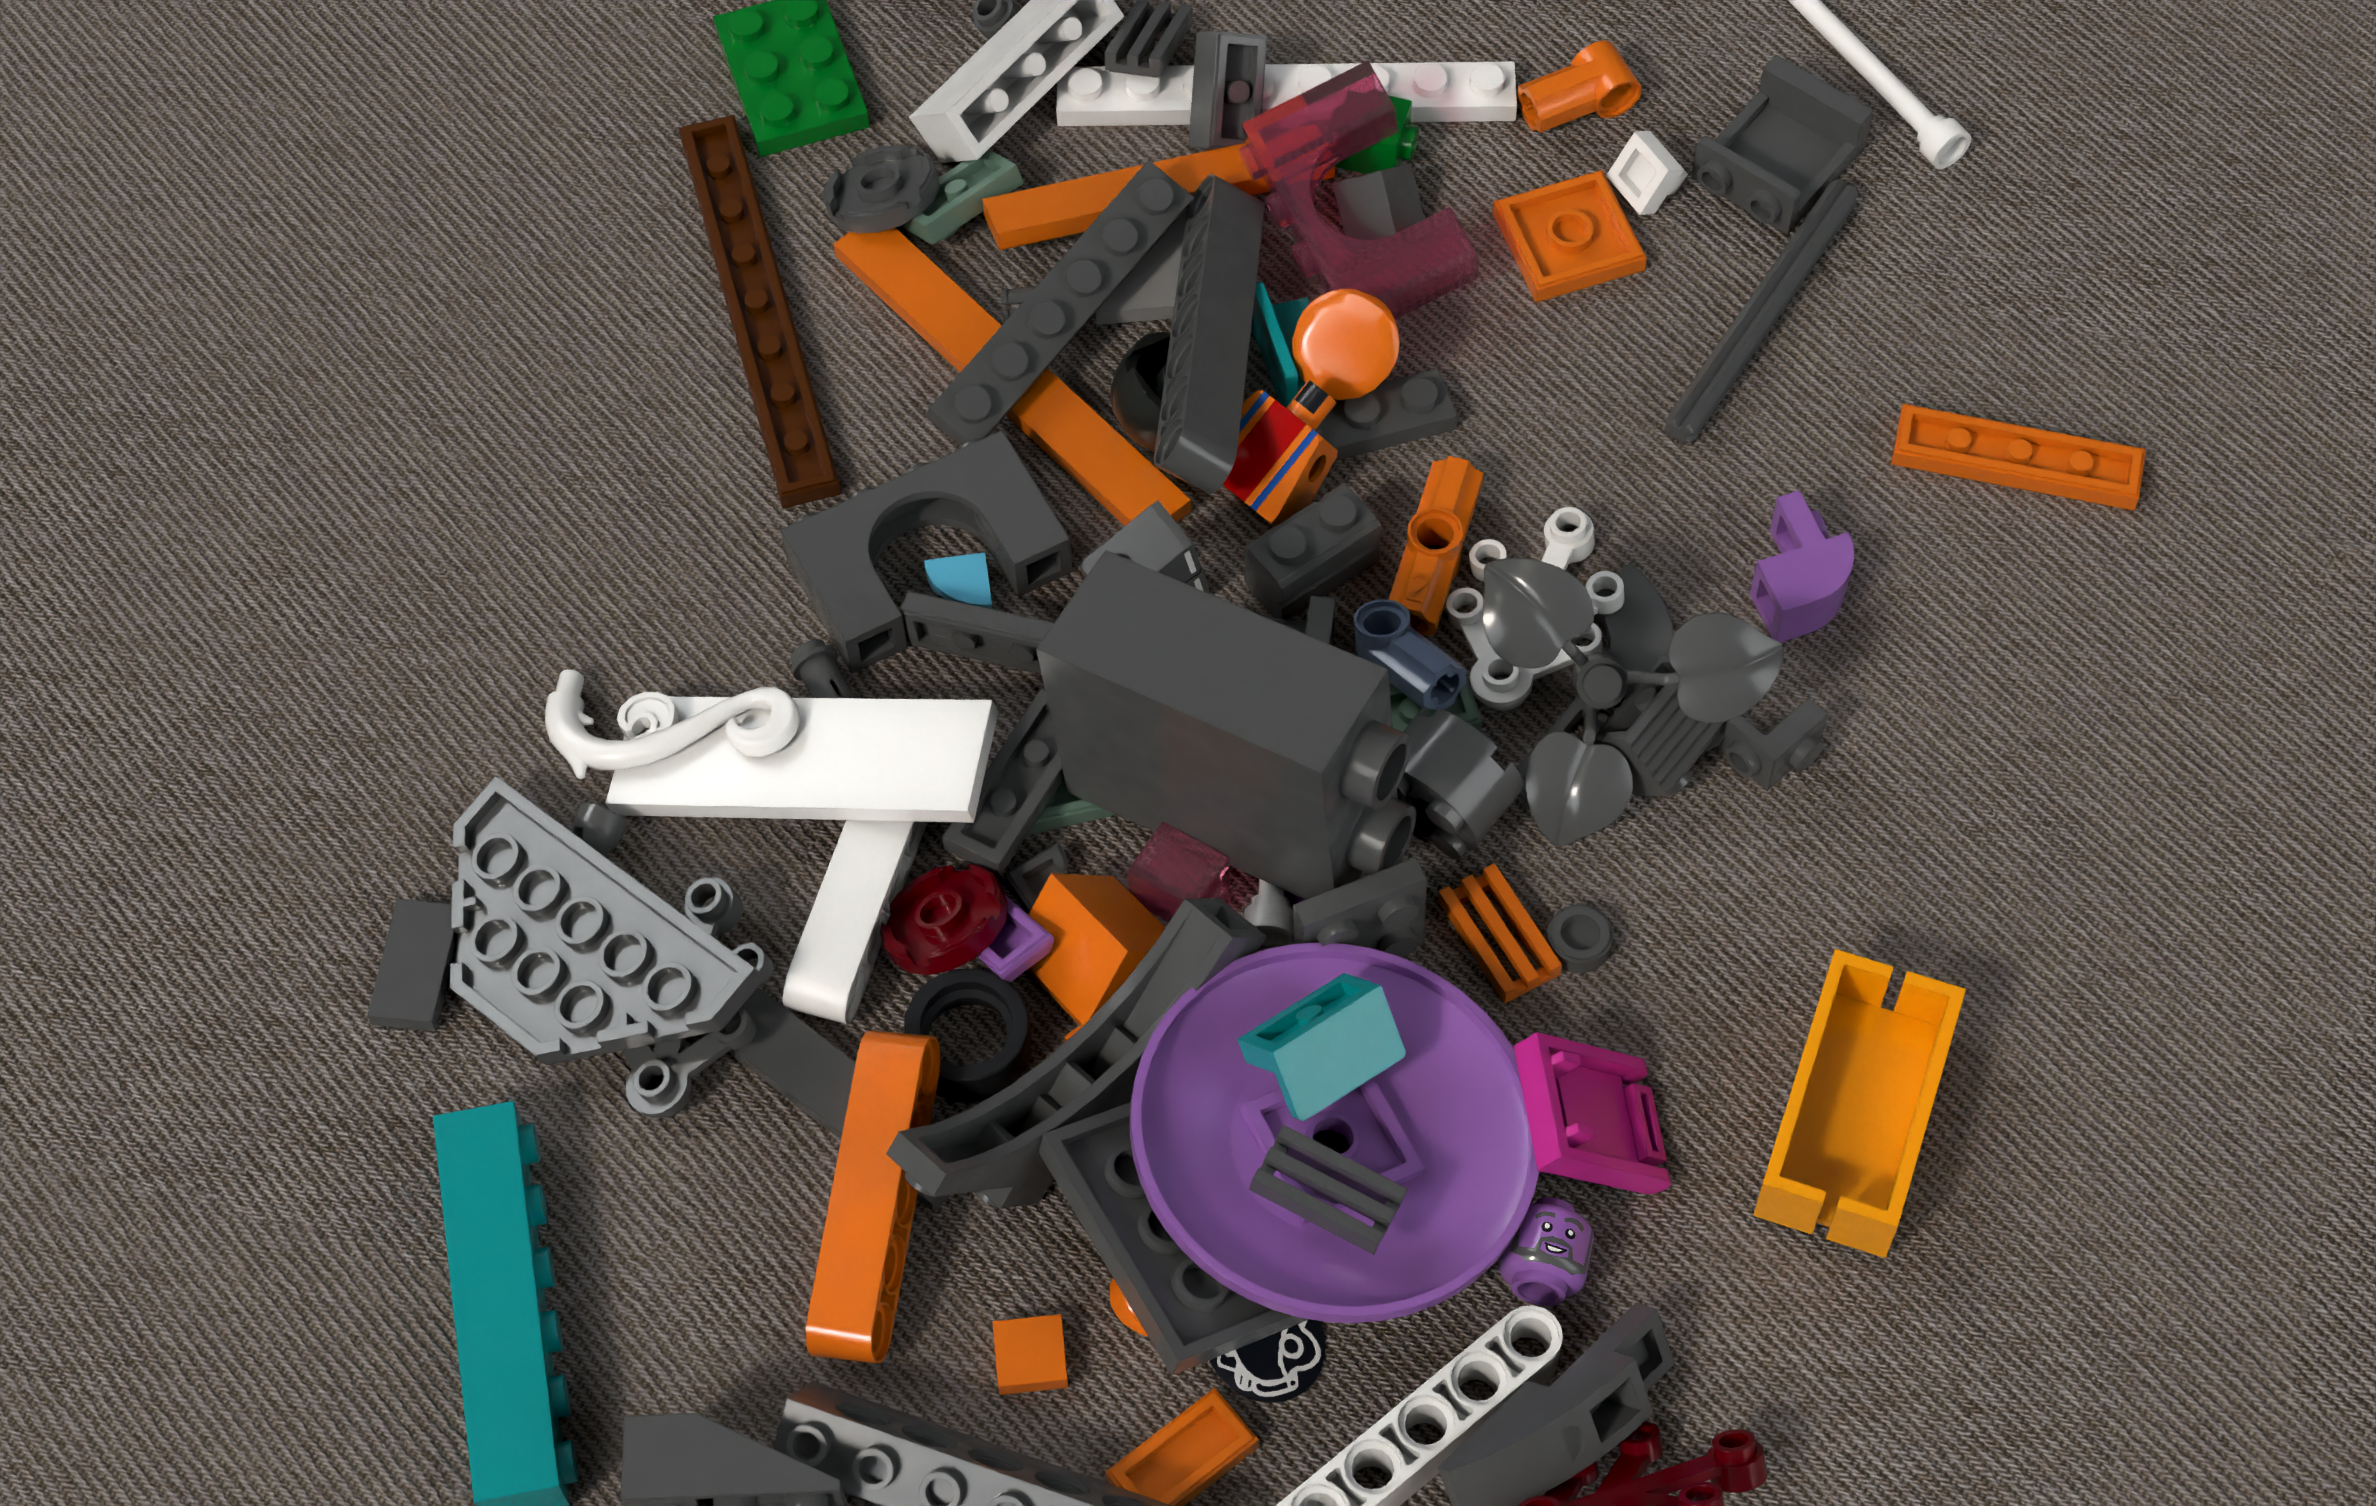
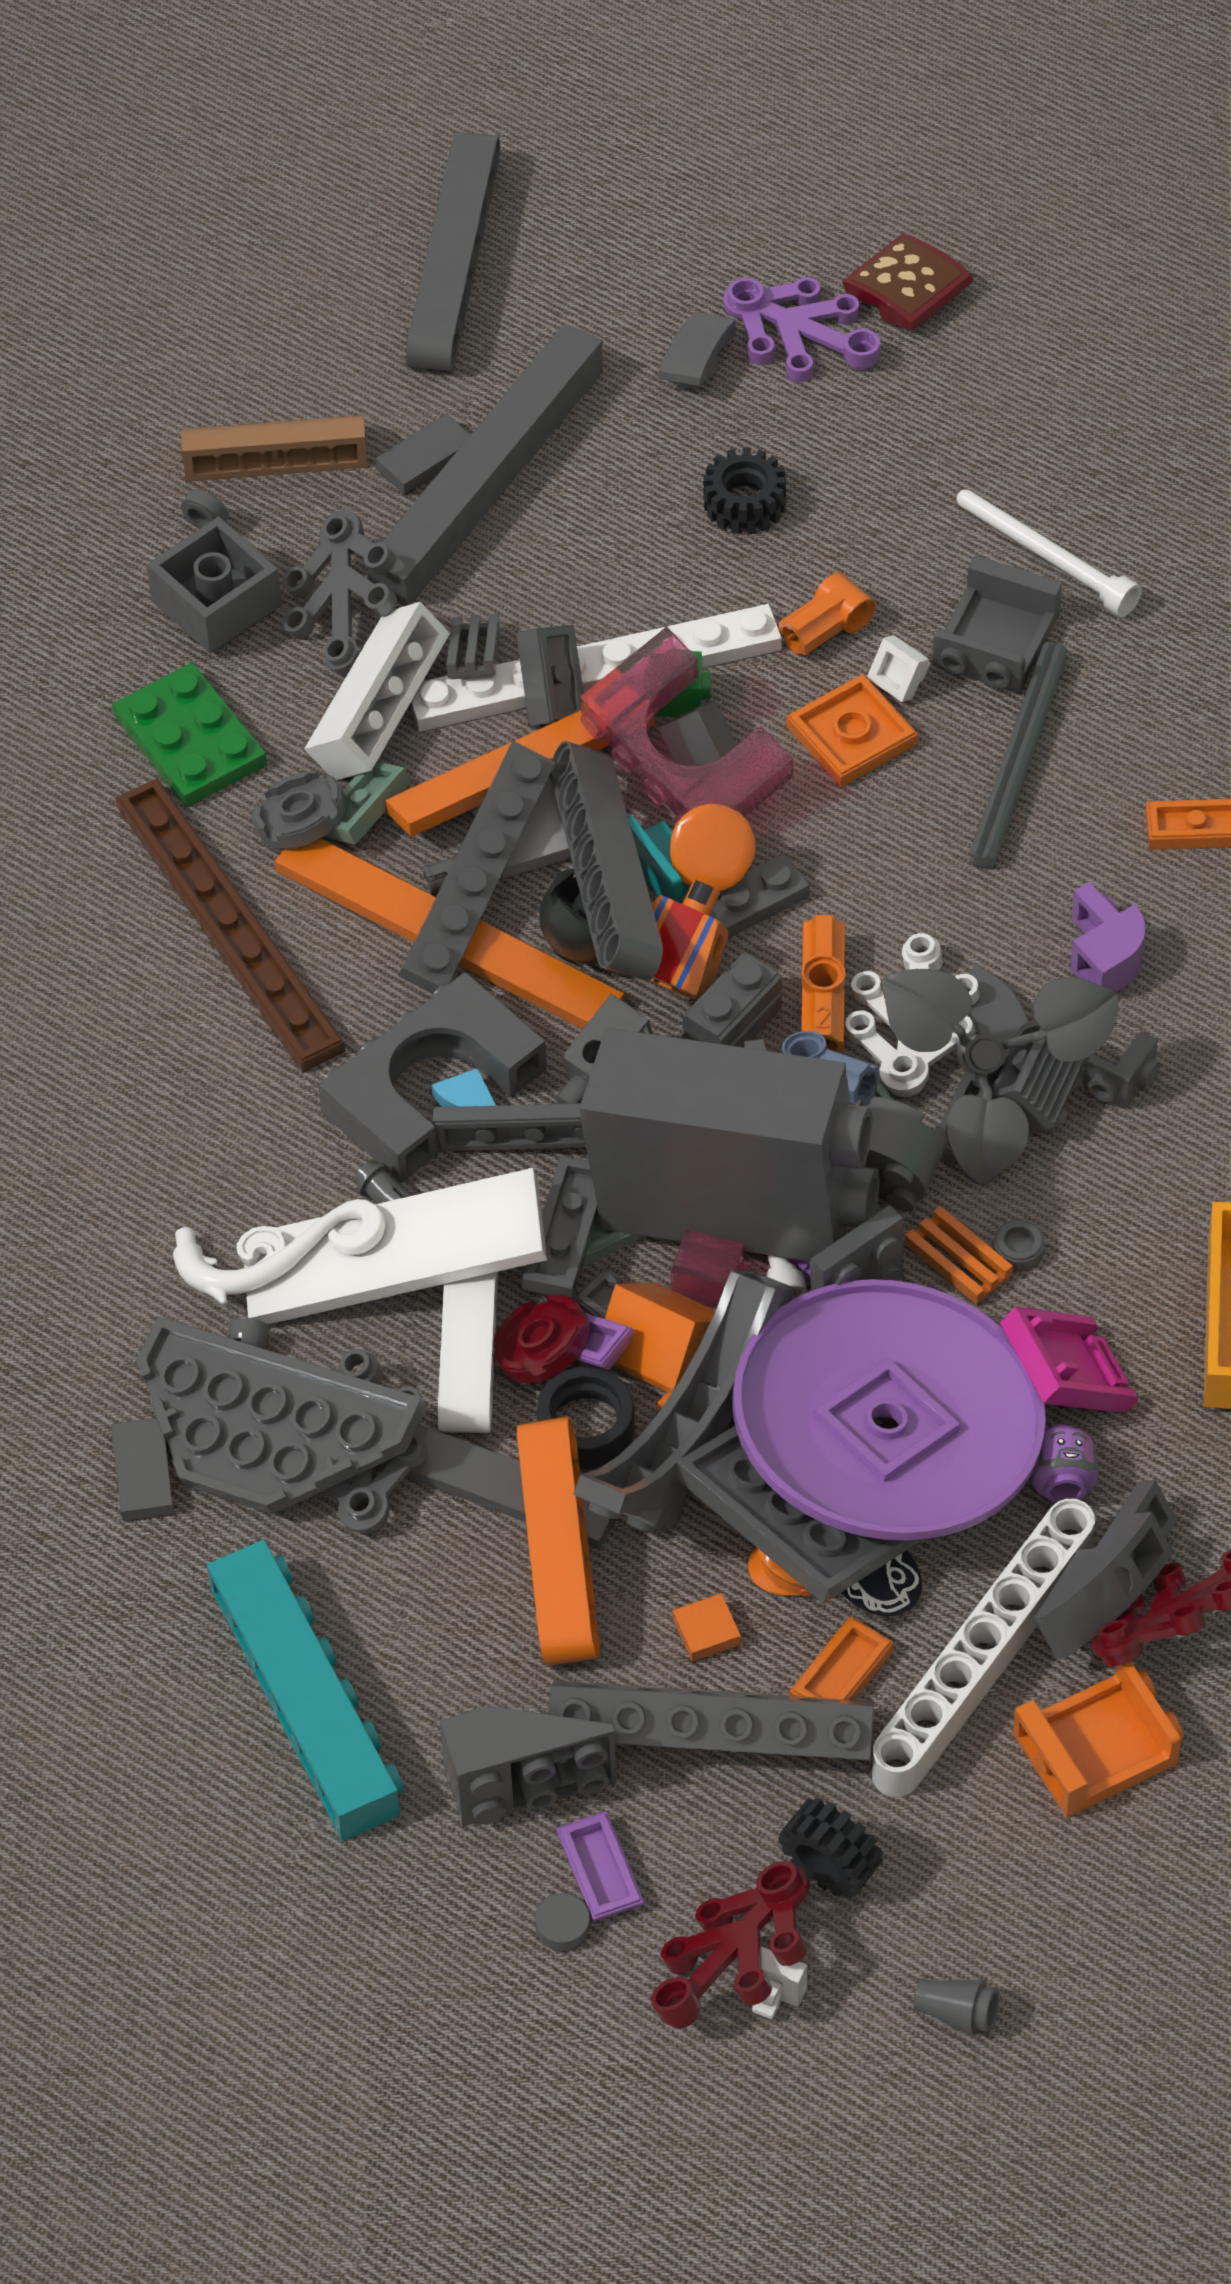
camera: 15 degrees left, 5 degrees down
(1326, 1044) = (866, 1348): teal panel -> none
(1333, 1179) = (901, 1440): dark grey tile -> none

